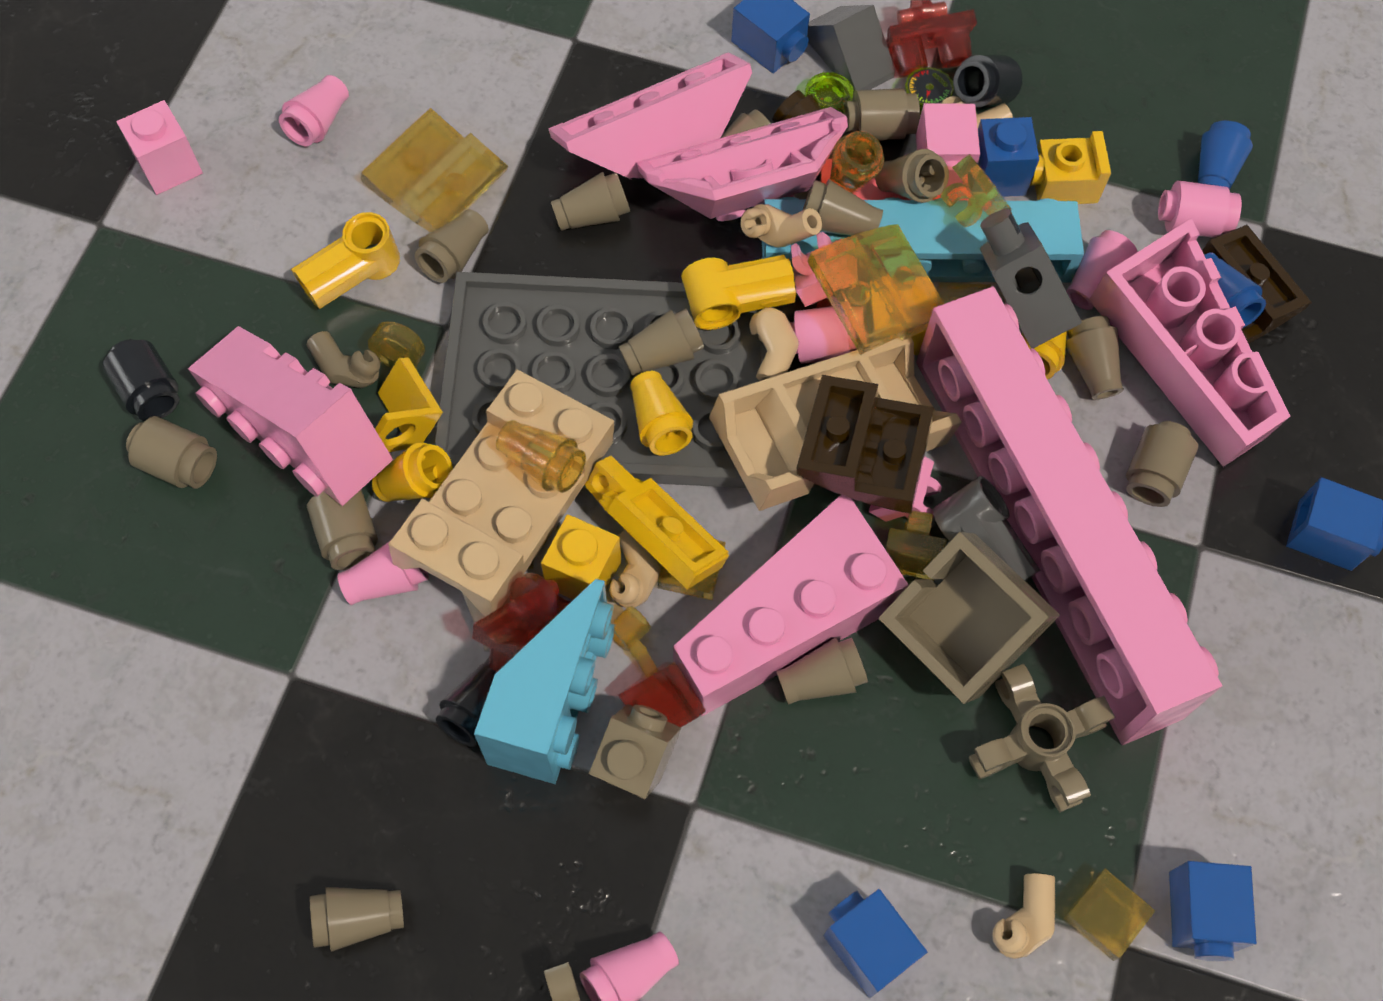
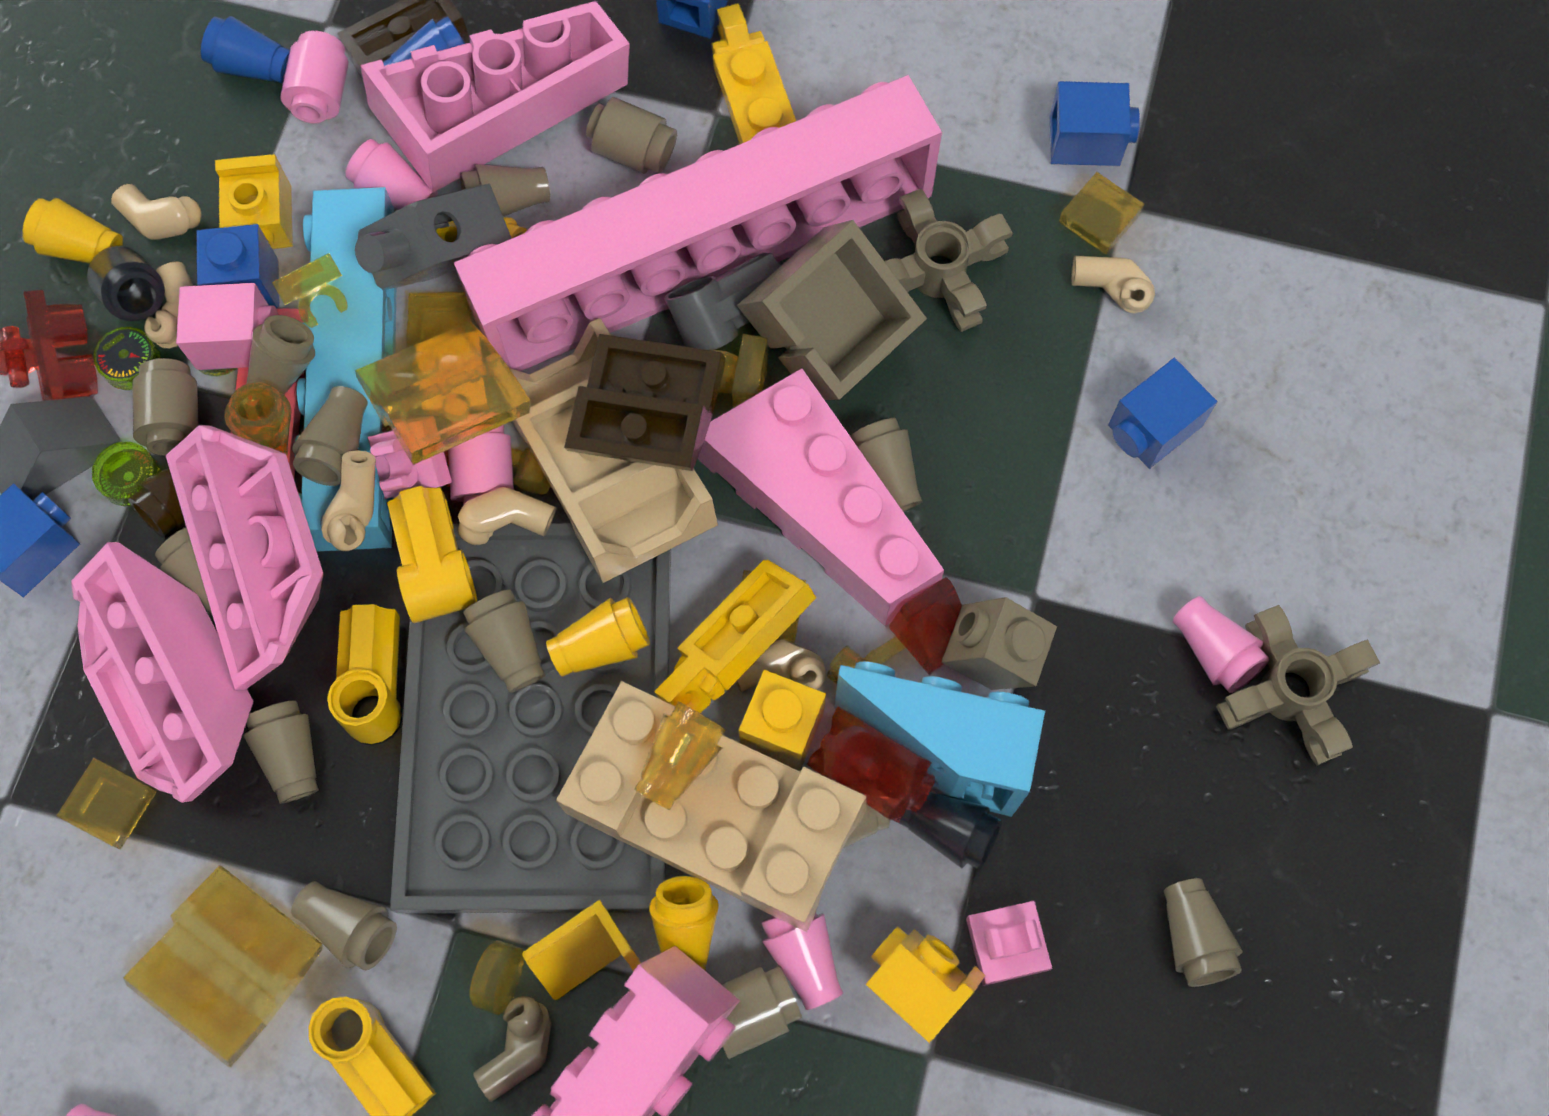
camera: 90 degrees left, 5 degrees up
(344, 659) = (921, 980): none -> yellow brick
(372, 746) = (1008, 943): none -> bright pink tile
(563, 95) = (106, 803): none -> clear yellow tile
(648, 253) = (367, 668): none -> yellow piece
(1036, 43) = (66, 232): none -> yellow cone
(1056, 104) = (157, 217): none -> tan arm
(1235, 575) = (748, 77): none -> yellow hinge

